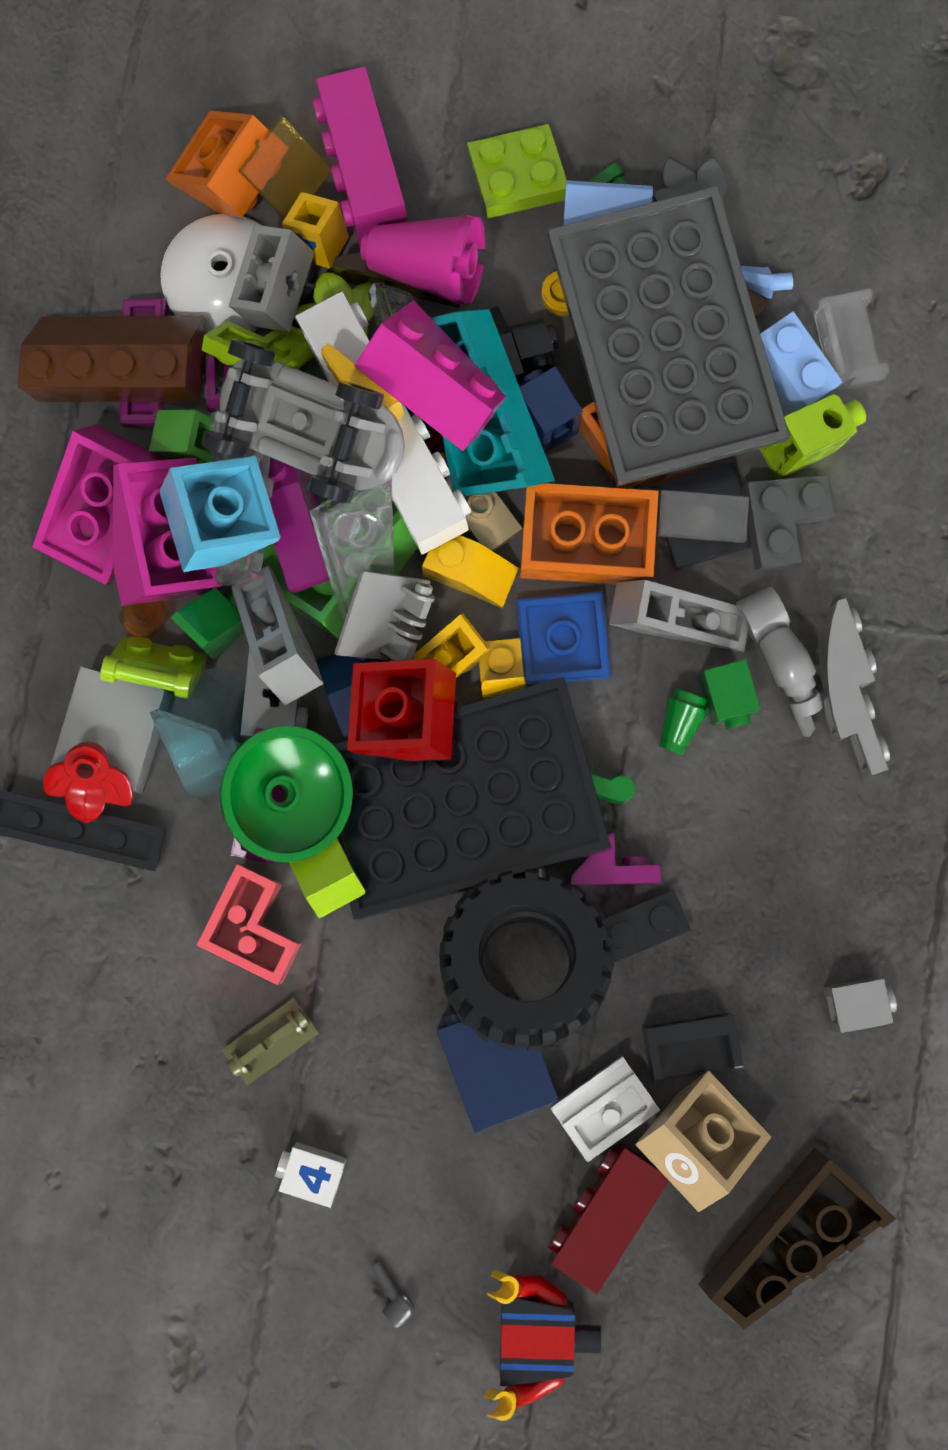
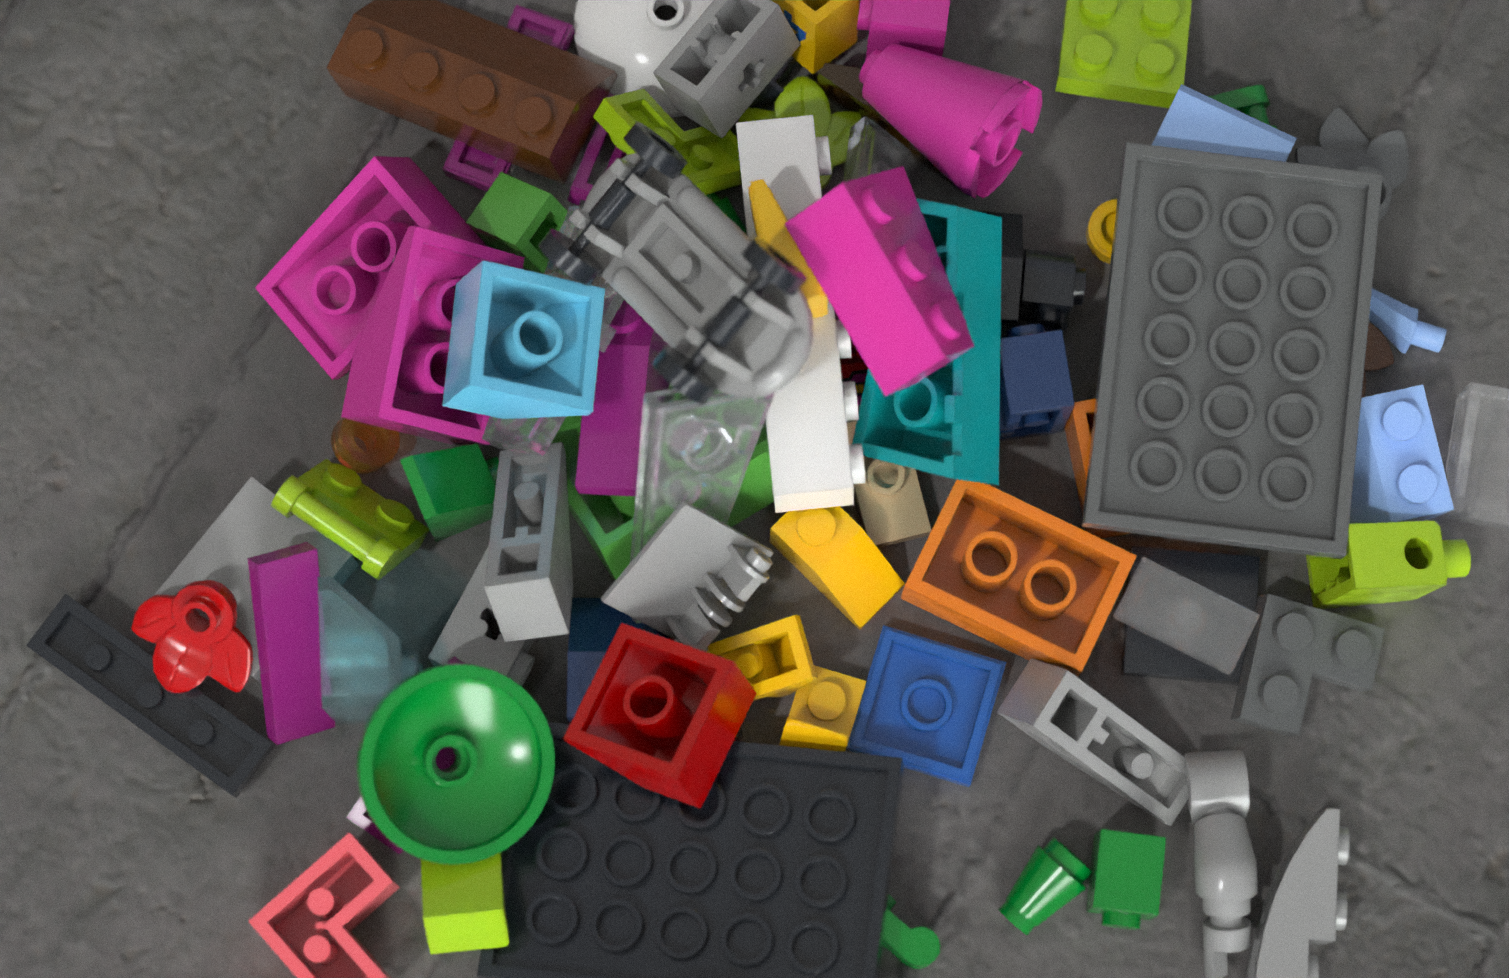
camera: 20 degrees right, 5 degrees down
(148, 760) = (289, 641): none -> magenta tile

